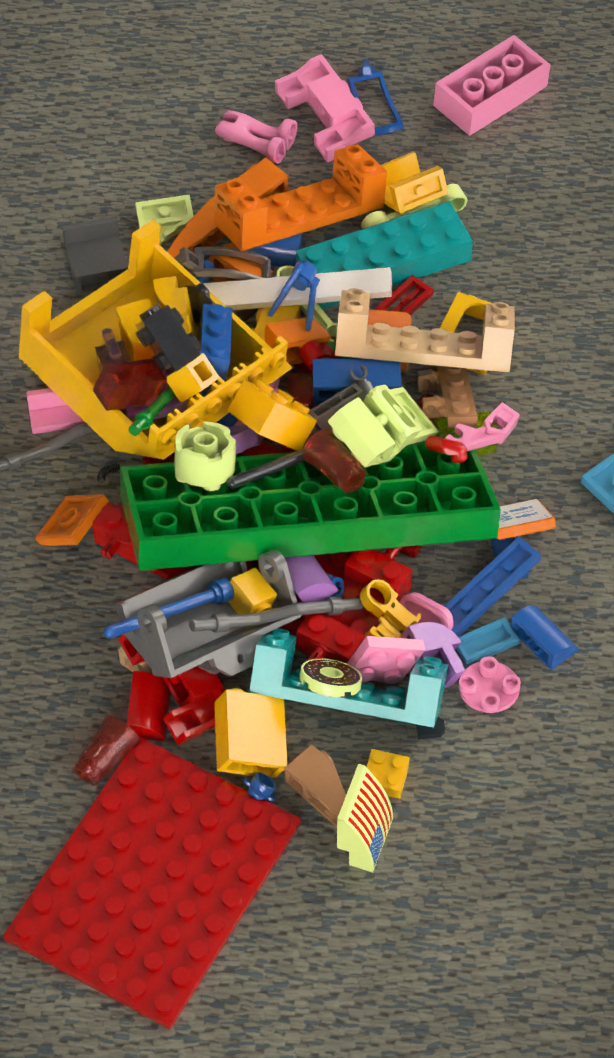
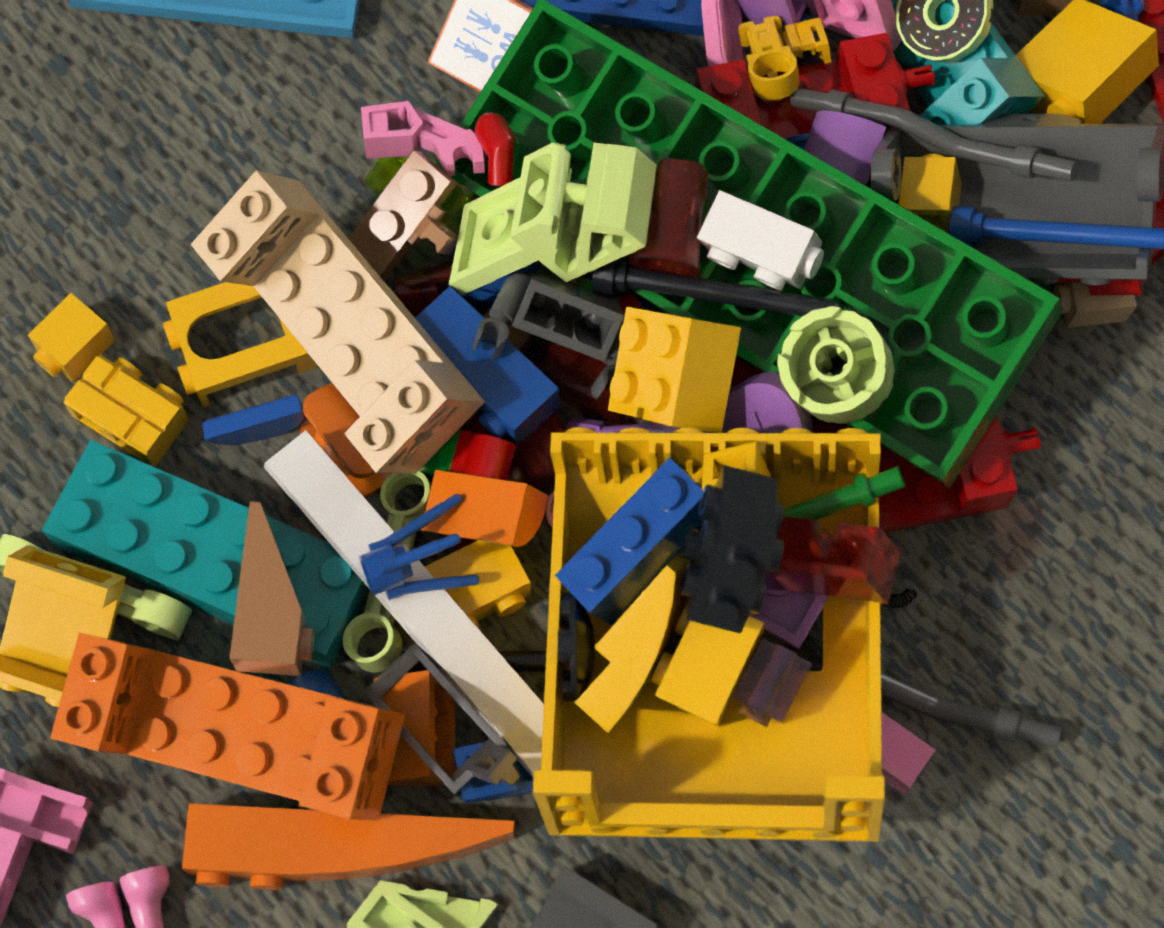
camera: 135 degrees left, 15 degrees up
(71, 520) = (1021, 543): orange tile -> none
(289, 478) = (762, 241): none -> white brick
(331, 234) = (268, 620): none -> medium nougat slope
(421, 313) = (255, 423): none -> blue tile
(427, 293) = (242, 494): red tile -> none
(479, 273) = (127, 409): none -> yellow brick
(533, 277) = (70, 339): none -> yellow brick

